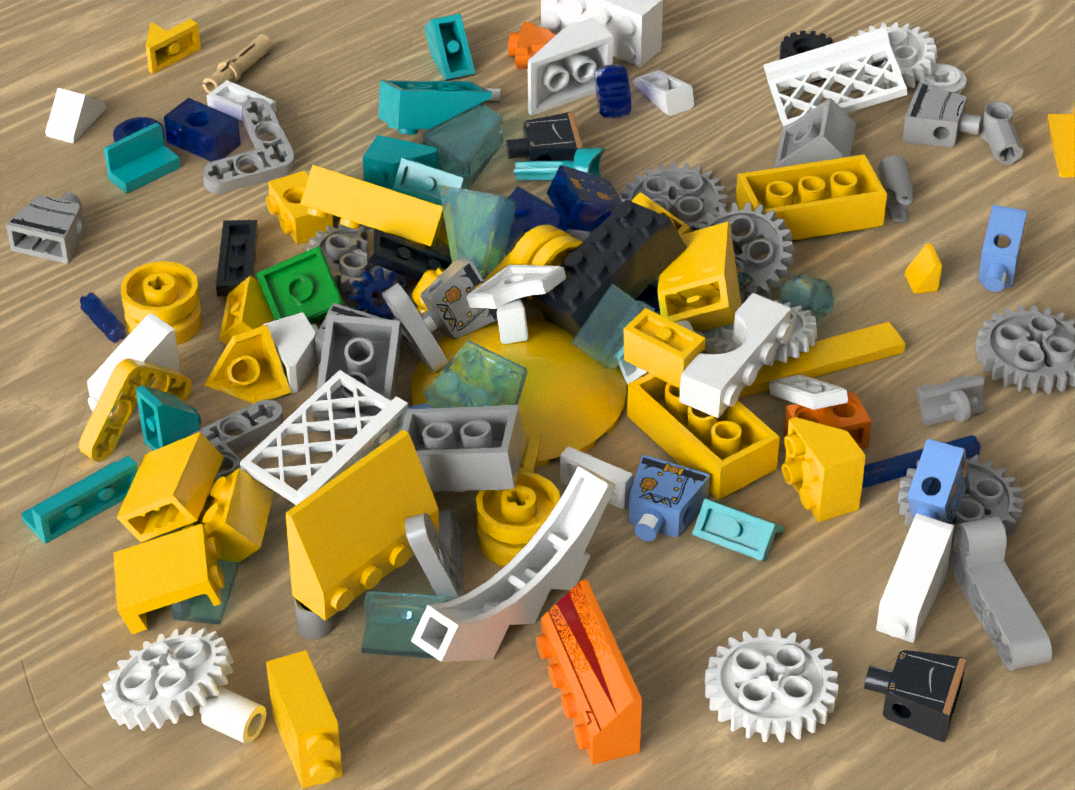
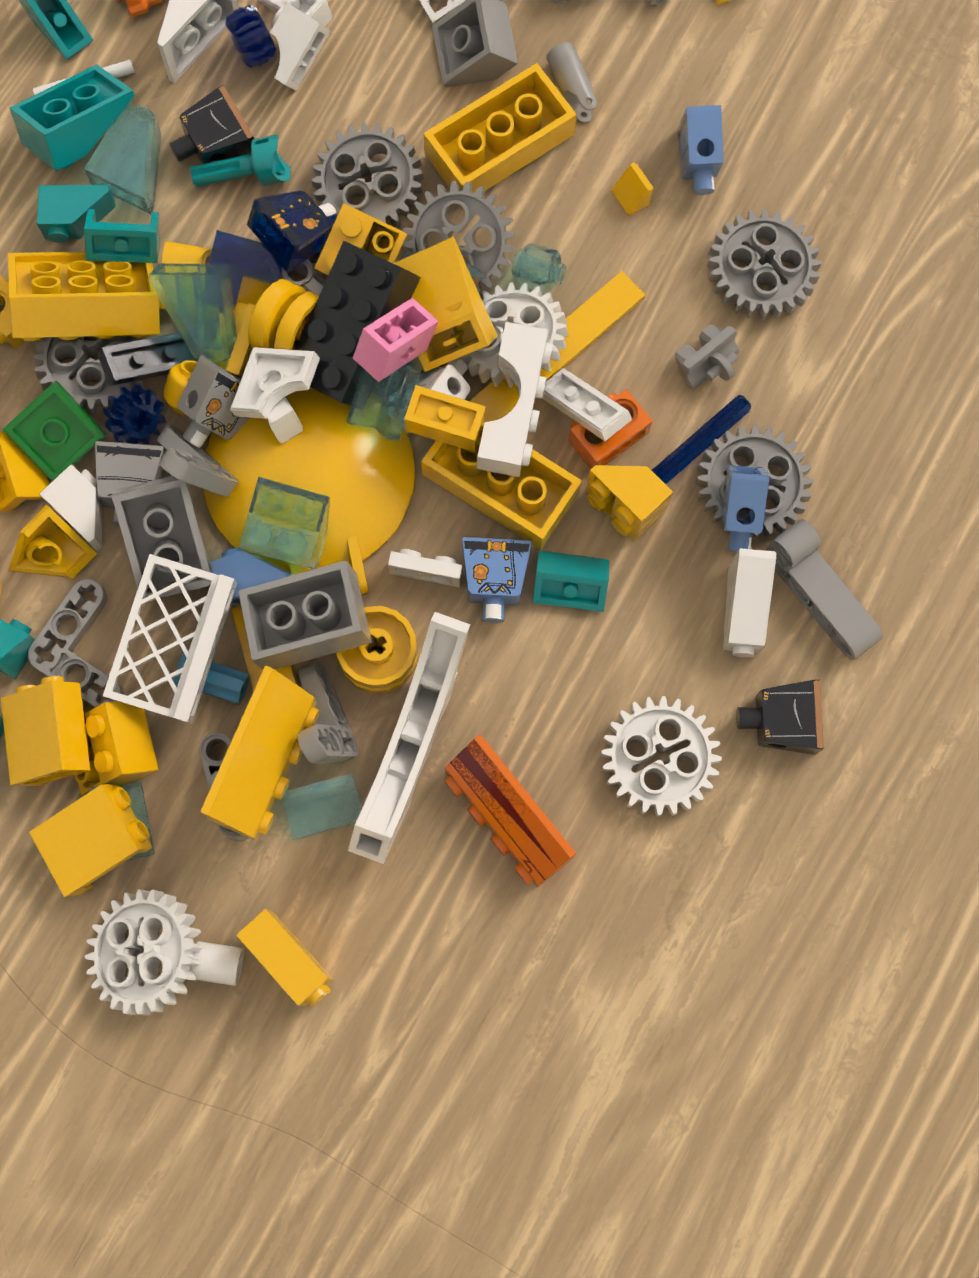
camera: 25 degrees left, 35 degrees up
(640, 270) = (395, 339): none -> bright pink brick
(653, 103) = (299, 44): none -> white arch

